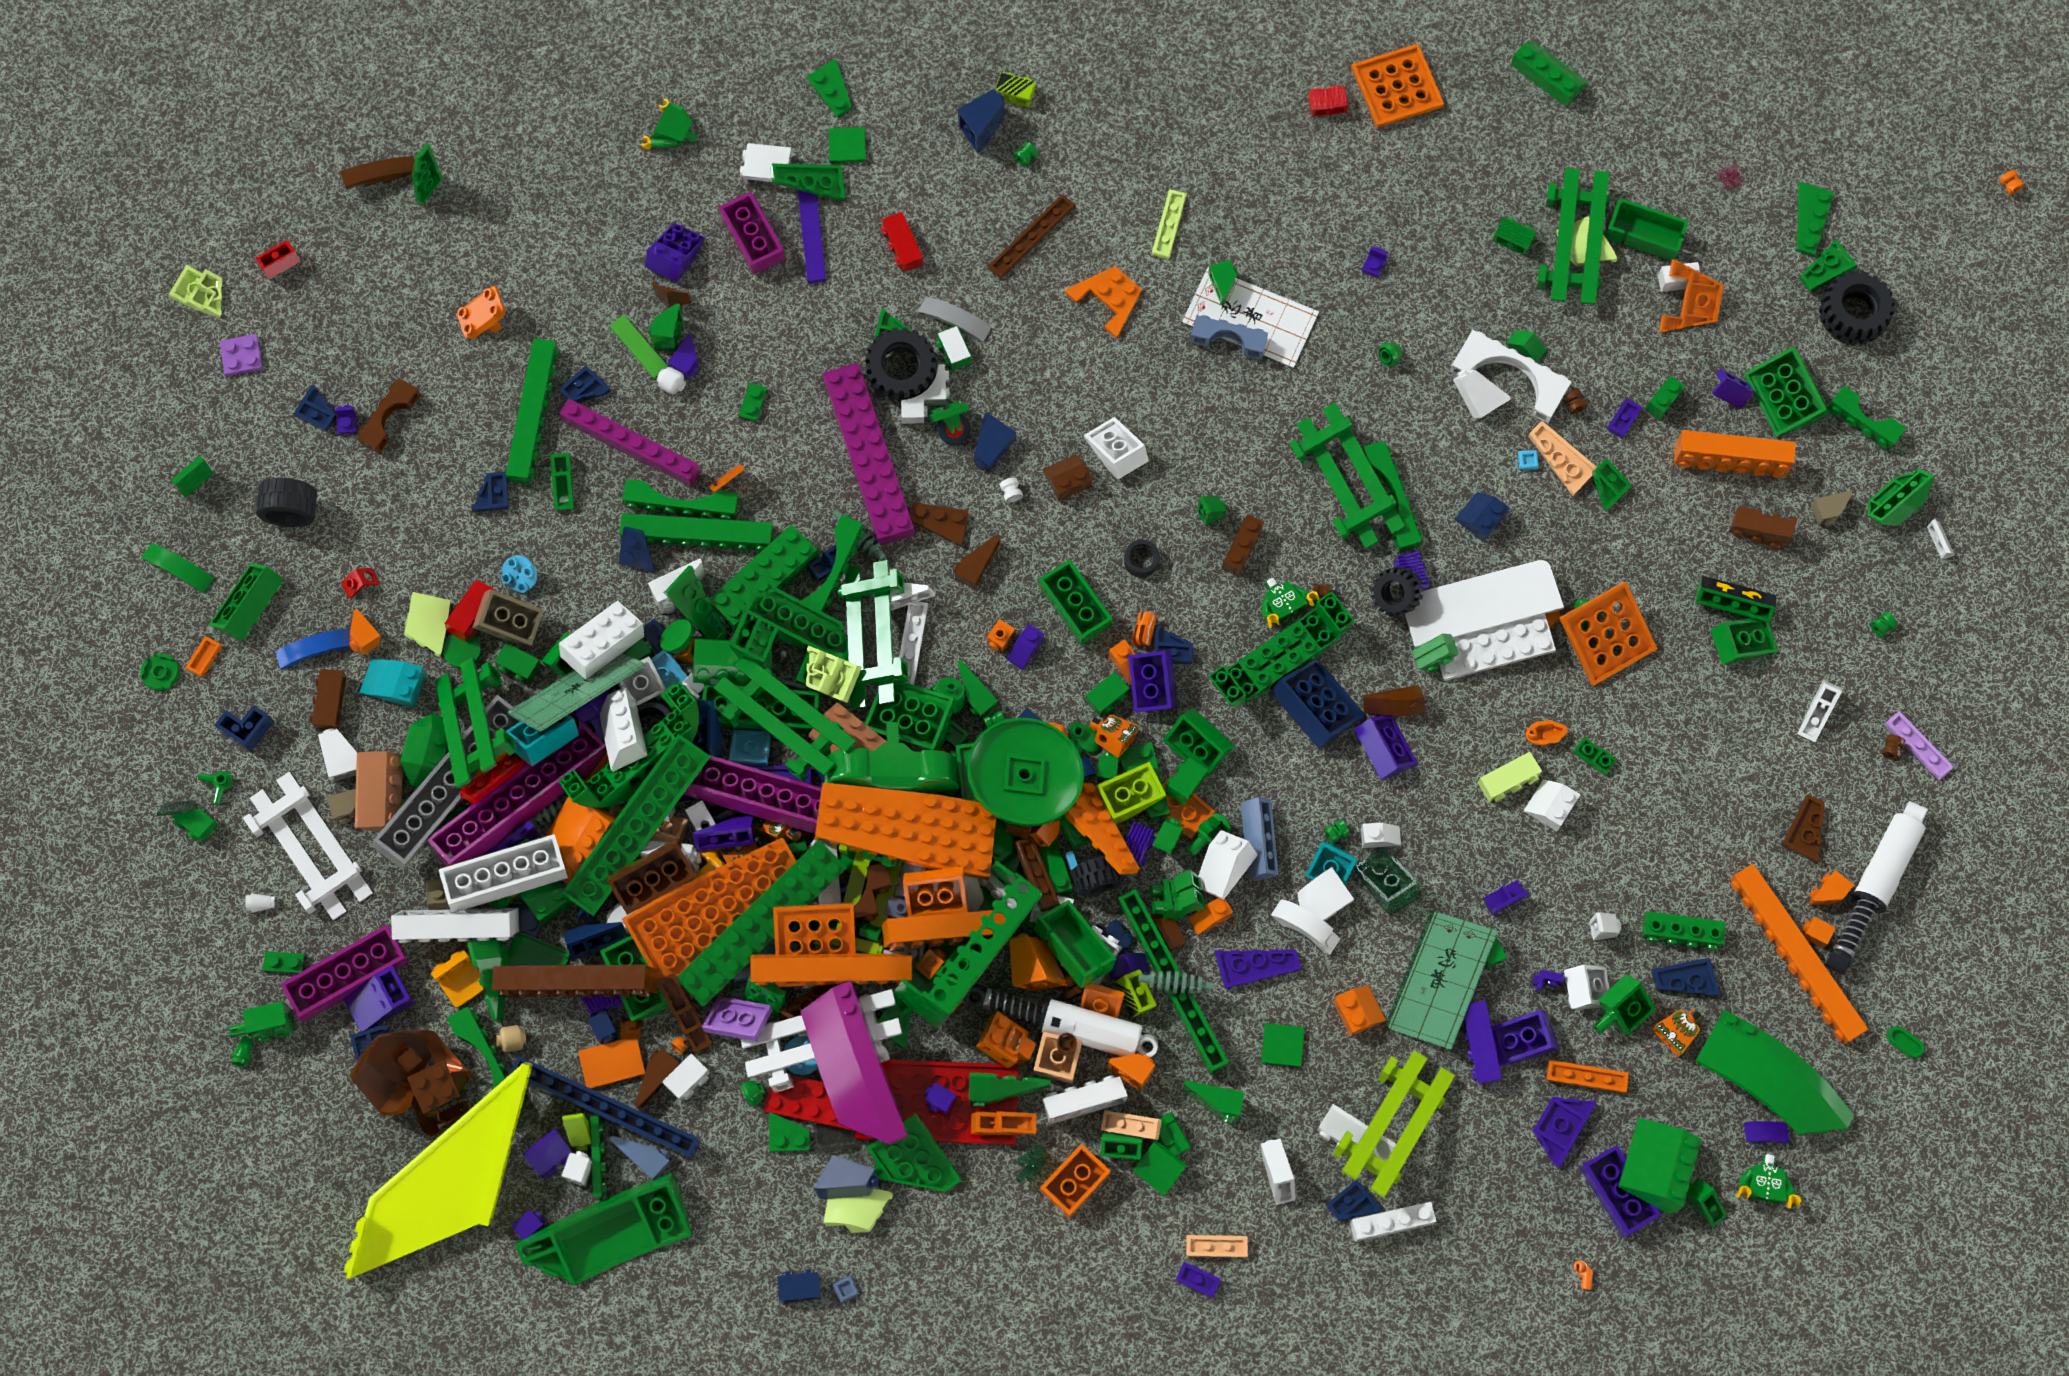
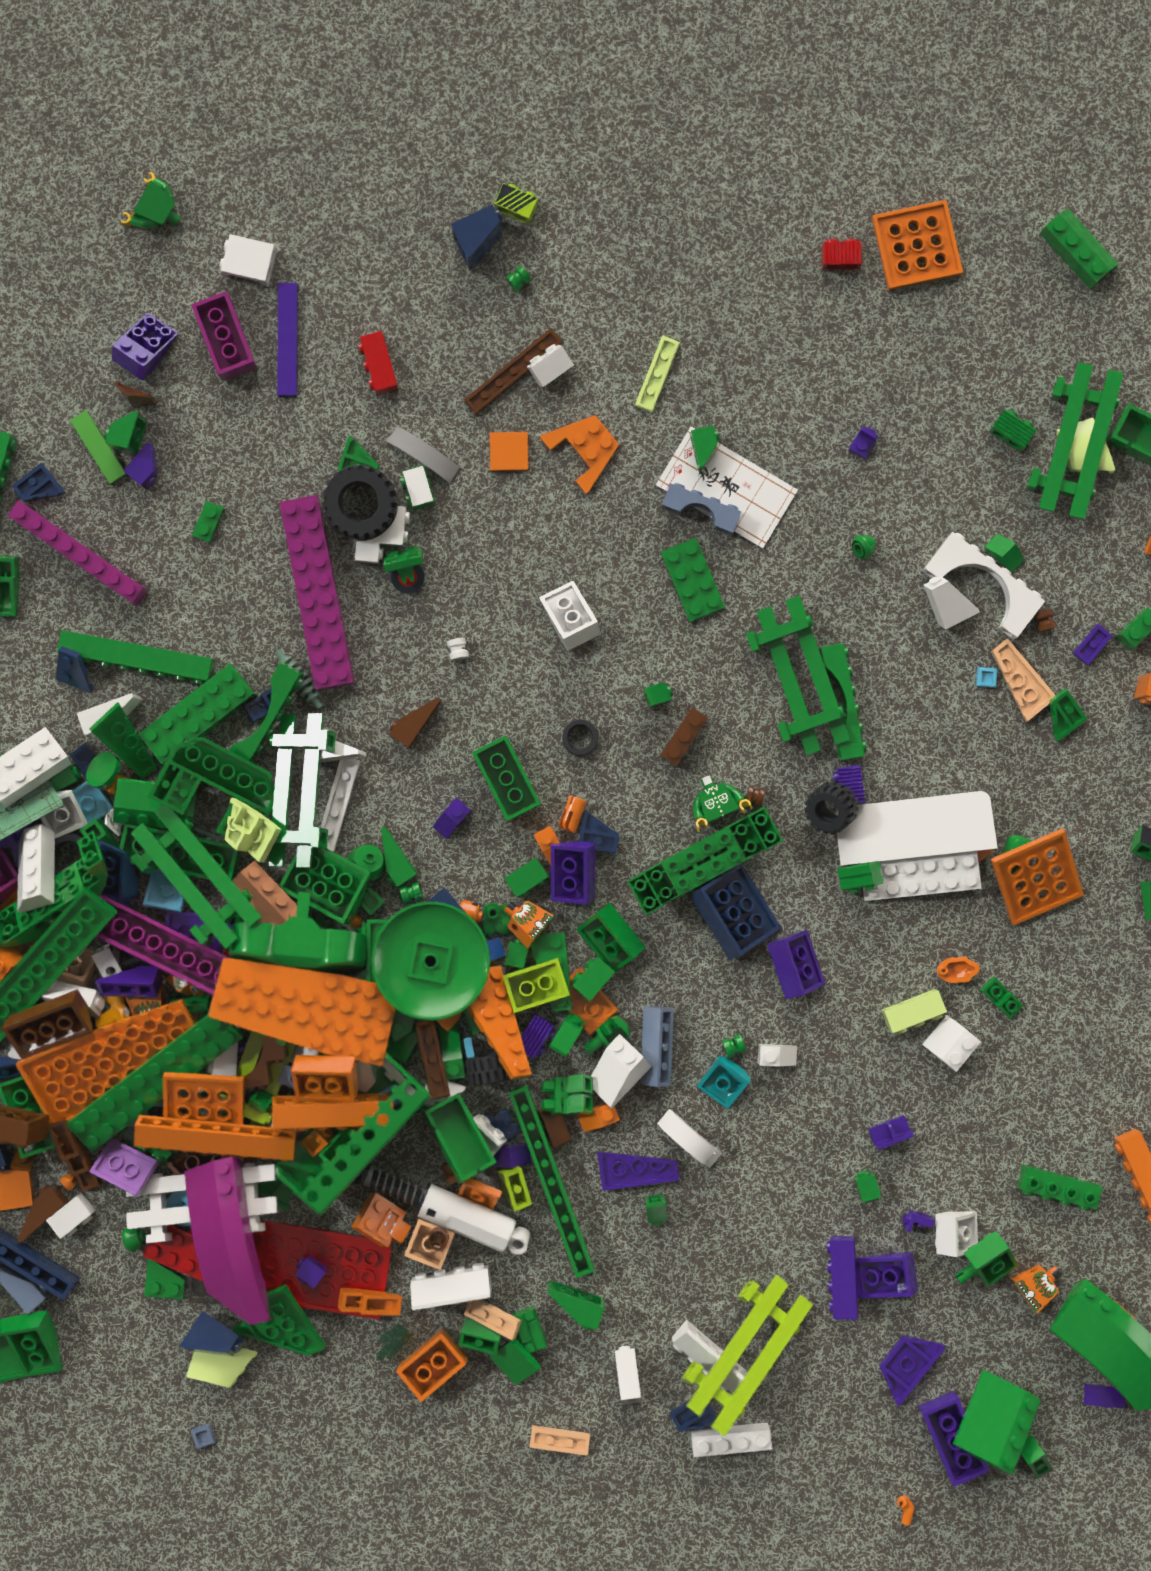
camera: 10 degrees right, 15 degrees up
(671, 380) = (126, 489): white head -> none
(719, 504) = (165, 630): green arch -> none
(727, 477) = (172, 603): orange tile -> none
(799, 1286) = (158, 1431): dark blue brick -> none
(810, 178) = (293, 282): green wing -> none
(831, 88) = (325, 178): green wing -> none
(847, 145) = (335, 246): green tile -> none
(943, 521) = (384, 672): reddish brown wing -> none
(989, 1089) = (362, 1268): green wedge -> none
(992, 442) = (444, 596): dark blue slope -> none
(1000, 636) = (427, 804): orange brick -> none
(1034, 964) = (417, 1151): orange slope -> none
(1036, 307) = (508, 451): none -> orange tile
(1066, 226) = (550, 365): none -> white brick
(1068, 477) = (516, 640): reddish brown slope -> none
(1133, 1069) = (501, 1265): orange slope -> none
(1151, 979) = (553, 1189): sand green piece -> none
(1197, 1279) = (537, 1470): dark purple plate -> none
(1230, 403) = (692, 580): none -> green plate
(1282, 998) = (656, 1209): none -> green slope
(1282, 1045) = (650, 1251): green tile -> none
(1325, 895) = (711, 1112): white slope -> none
(1358, 1010) = (730, 1227): orange slope -> none
(1388, 881) = (777, 1102): clear green slope -> none
(1395, 702) = (814, 921): reddish brown slope -> none
(1440, 979) = (814, 1208): clear green piece -> none
(1482, 515) = (930, 732): dark blue slope -> none
(1587, 1076) = (940, 1319): orange plate -> none
(1604, 926) = (983, 1175): white slope -> none
(1688, 977) = (1056, 1233): dark blue wing -> none
(1767, 1184) = (1096, 1447): green torso -> none

